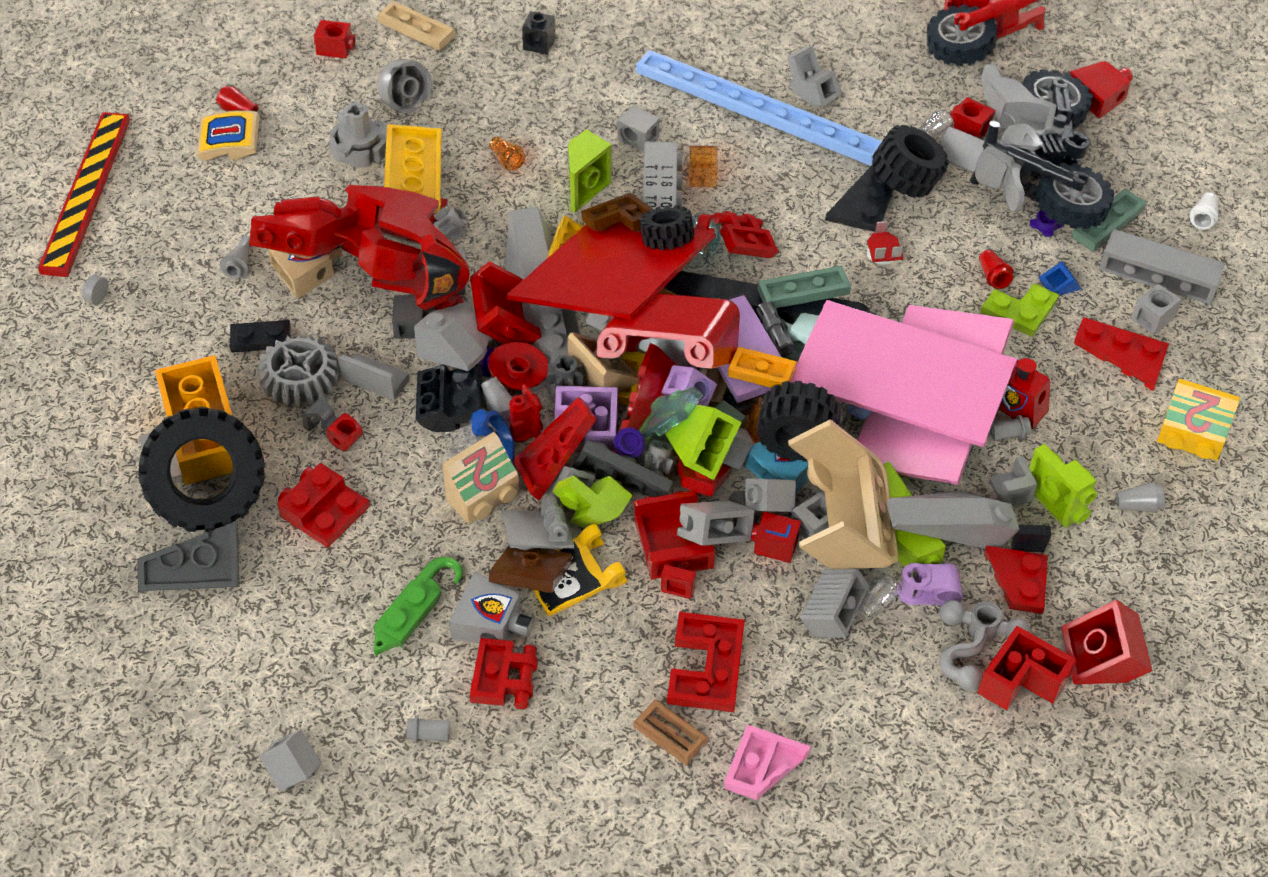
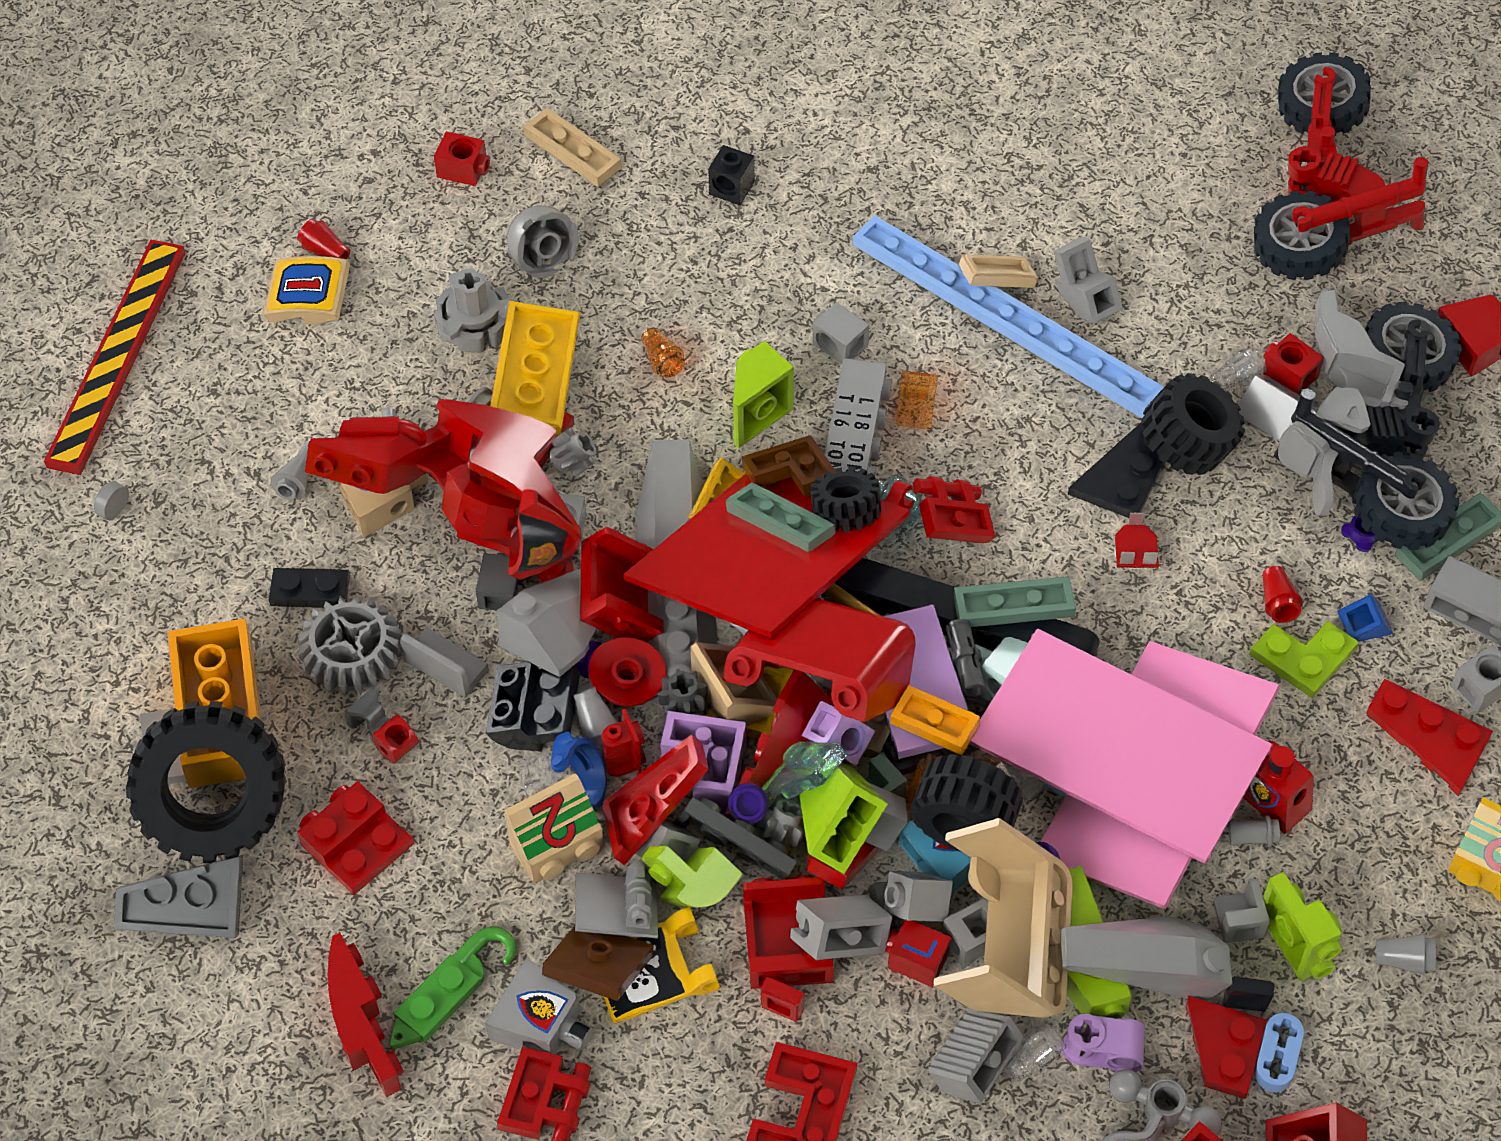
camera: 10 degrees right, 5 degrees up
(345, 633) = (354, 1015): none -> red slope
(618, 245) = (779, 517): none -> sand green plate
(746, 77) = (998, 271): none -> tan tile
(1068, 577) = (1288, 1054): none -> light blue beam

